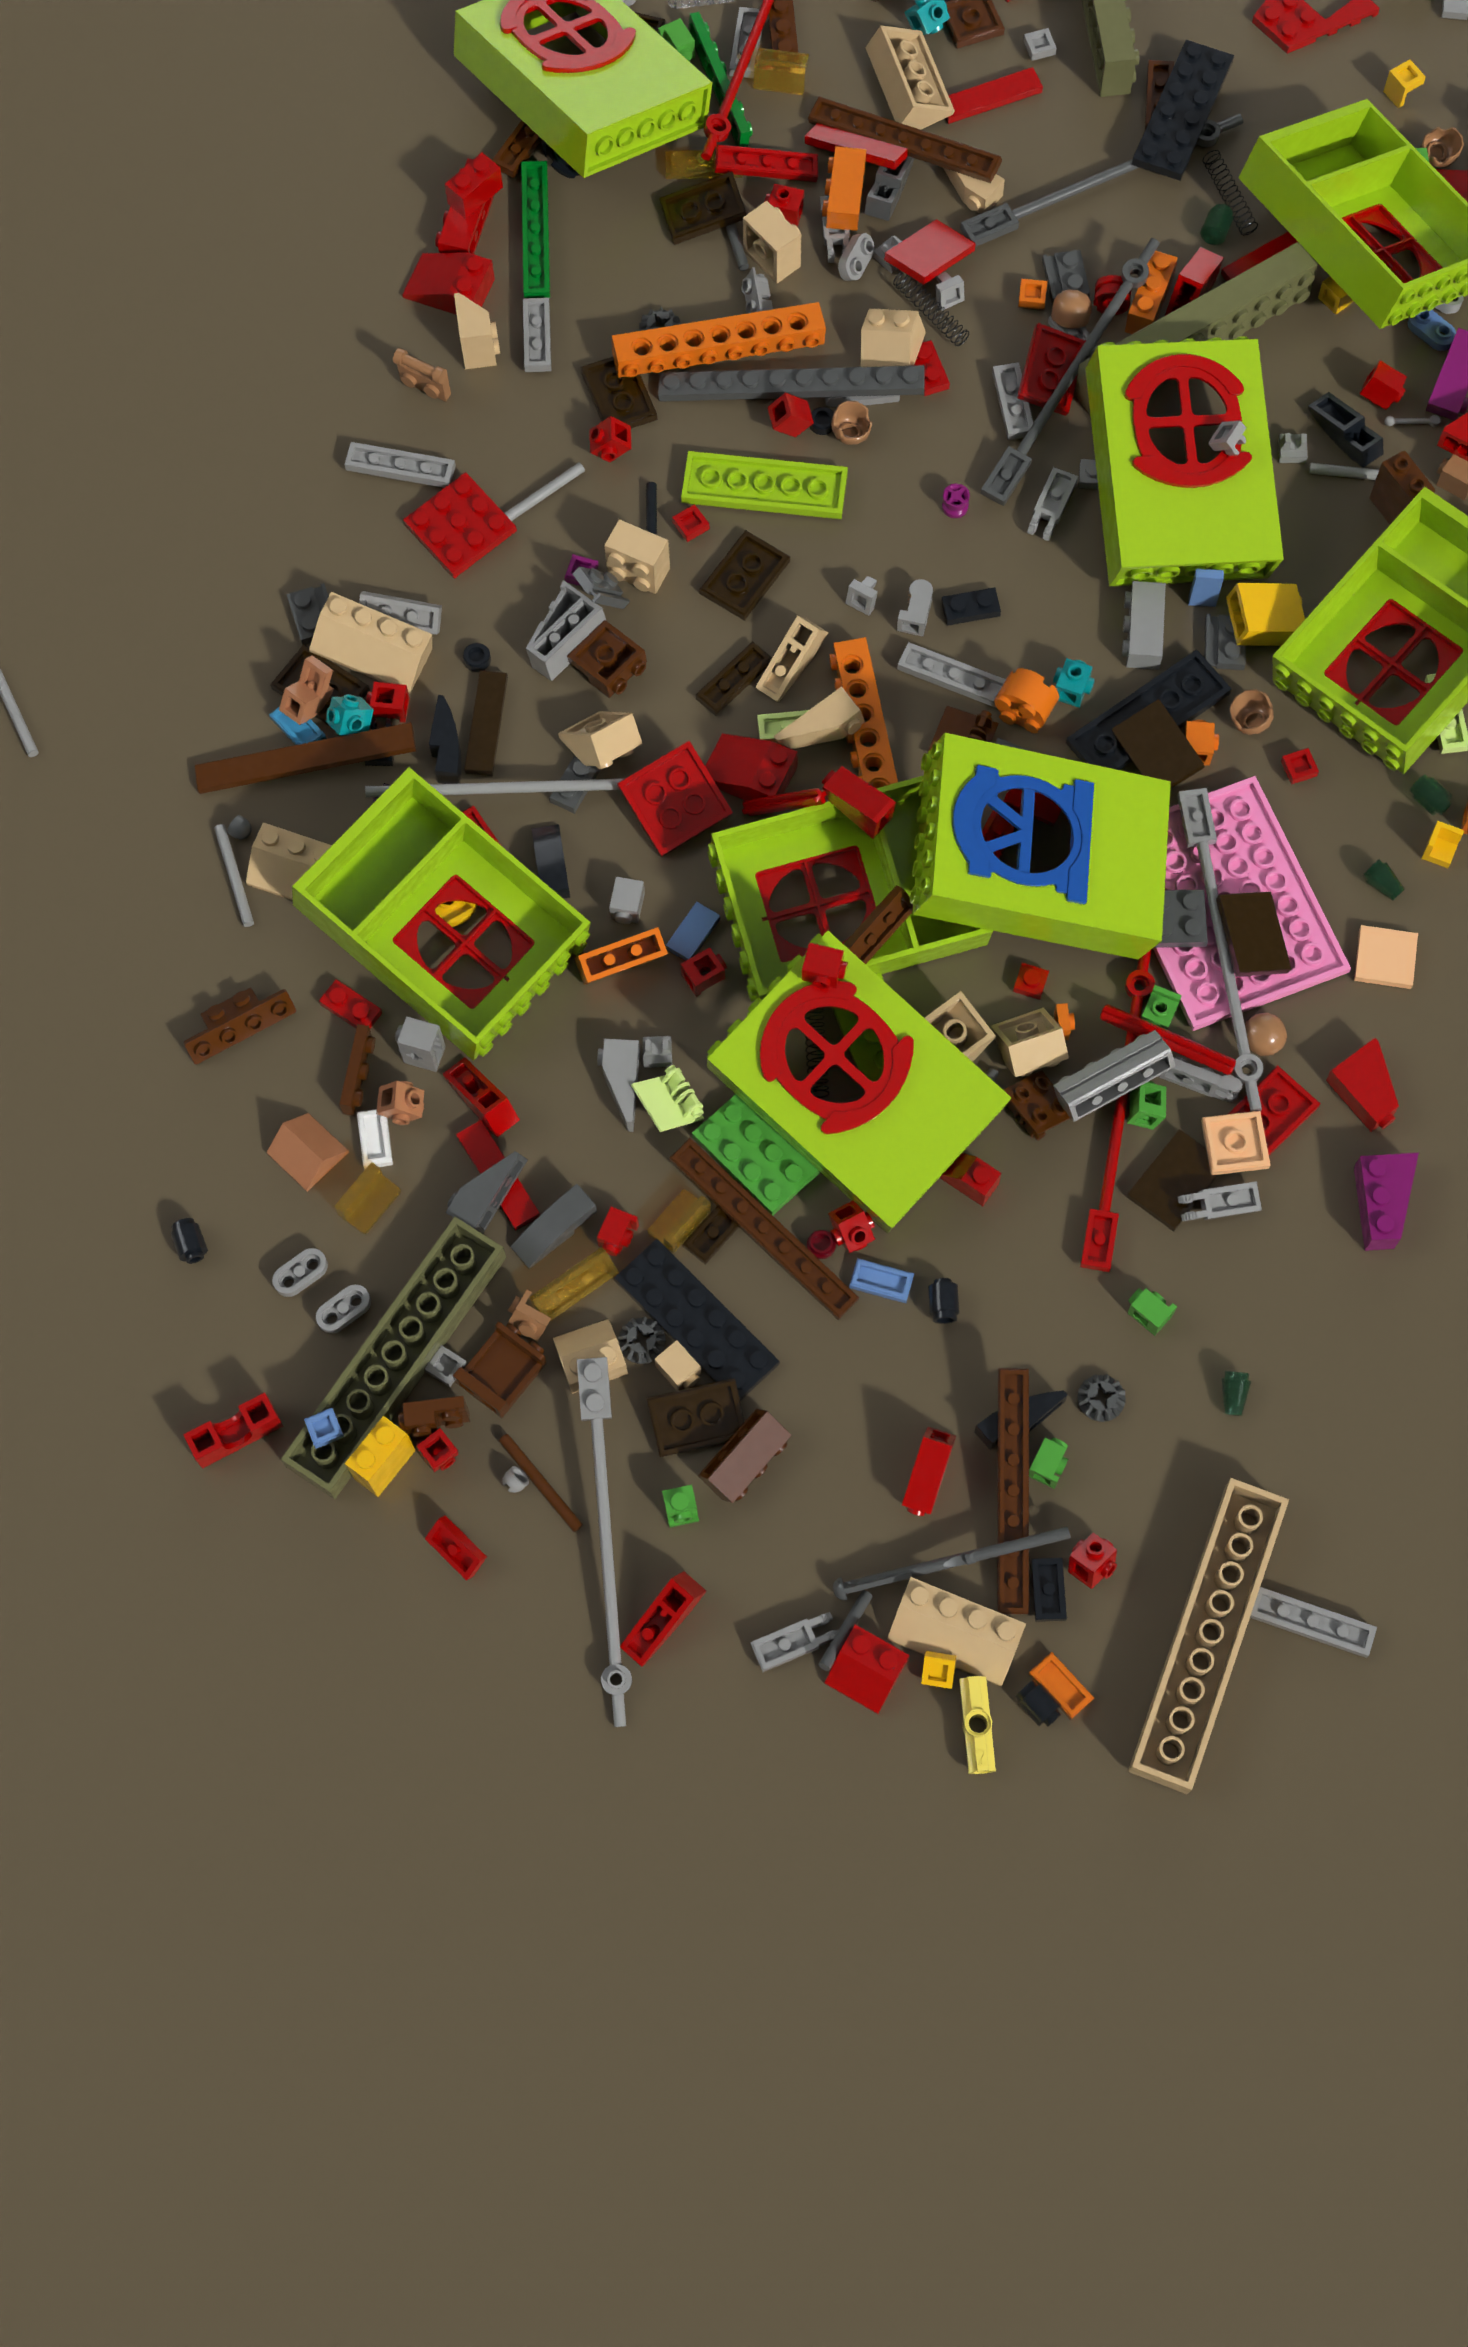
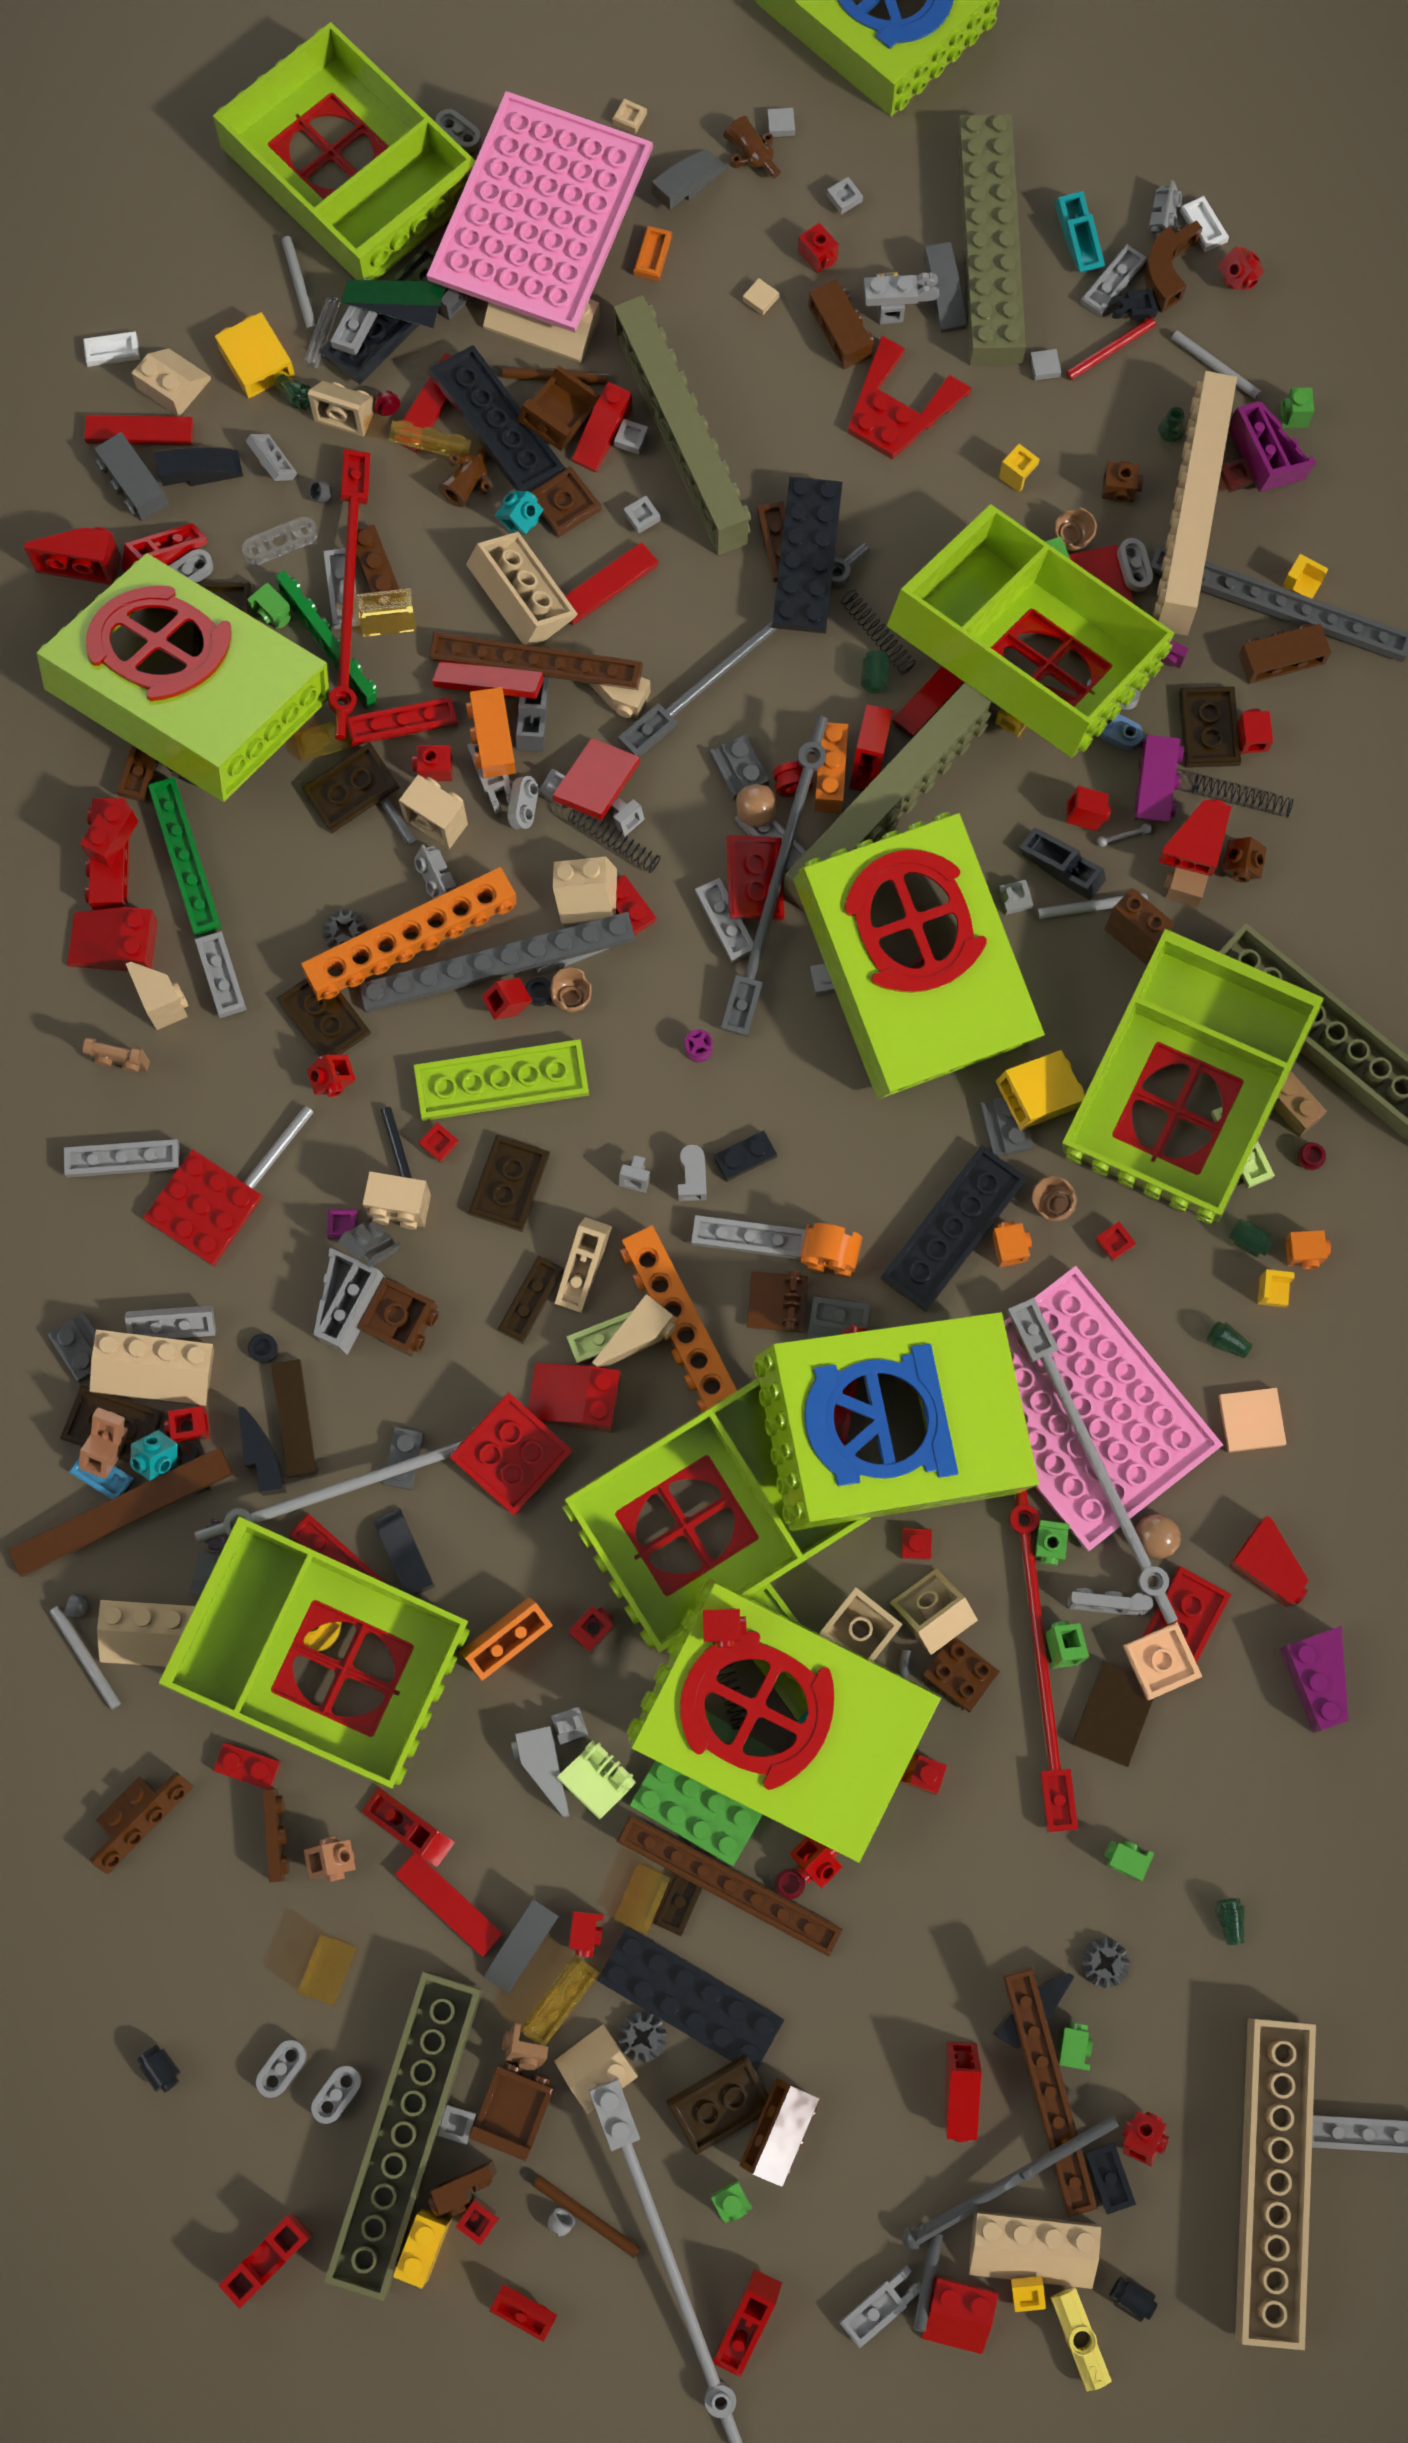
camera: 20 degrees left, 5 degrees up
(305, 1150) = (248, 1934): nougat slope -> none
(324, 1428) = (358, 2237): medium blue tile -> none
(374, 1139) = (313, 1902): white tile -> none
(420, 1043) = (331, 1793): light grey brick -> none
(483, 1195) = (439, 1943): dark grey slope -> none
(602, 738) = (417, 1406): tan slope -> none
(627, 900) = (493, 1575): light grey brick -> none
(678, 1366) = (688, 2057): tan brick -> none
(693, 931) = (568, 1587): medium blue tile -> none
(784, 802) = (625, 1437): red axle -> none
(858, 800) = (702, 1429): red slope -> none
(880, 924) = (758, 1553): reddish brown plate -> none
(881, 1280) = (859, 1903): medium blue tile -> none
(943, 1301) = (926, 1909): black brick -> none
(1032, 294) = (712, 796): orange plate -> none
(1053, 501) = (795, 1019): light grey hinge -> none
(1061, 1685) = (1148, 2271): orange tile -> none
(1064, 1019) = (961, 1579): orange plate -> none
(1073, 681) = (869, 1223): teal brick -> none
(1114, 1075) = (1028, 1630): light grey brick -> none
(1144, 625) = (923, 1131): light grey brick -> none
(1158, 745) = (974, 1266): dark brown tile -> none
(1176, 1042) = (1068, 1574): red axle -> none
(1184, 919) = (1050, 1440): dark grey plate -> none
(1206, 587) = (974, 1078): medium blue tile -> none
(1223, 1201) = (1166, 1727): light grey hinge -> none
(1227, 436) = (959, 929): light grey tile -> none
(1253, 934) = (1121, 1439): dark brown tile -> none

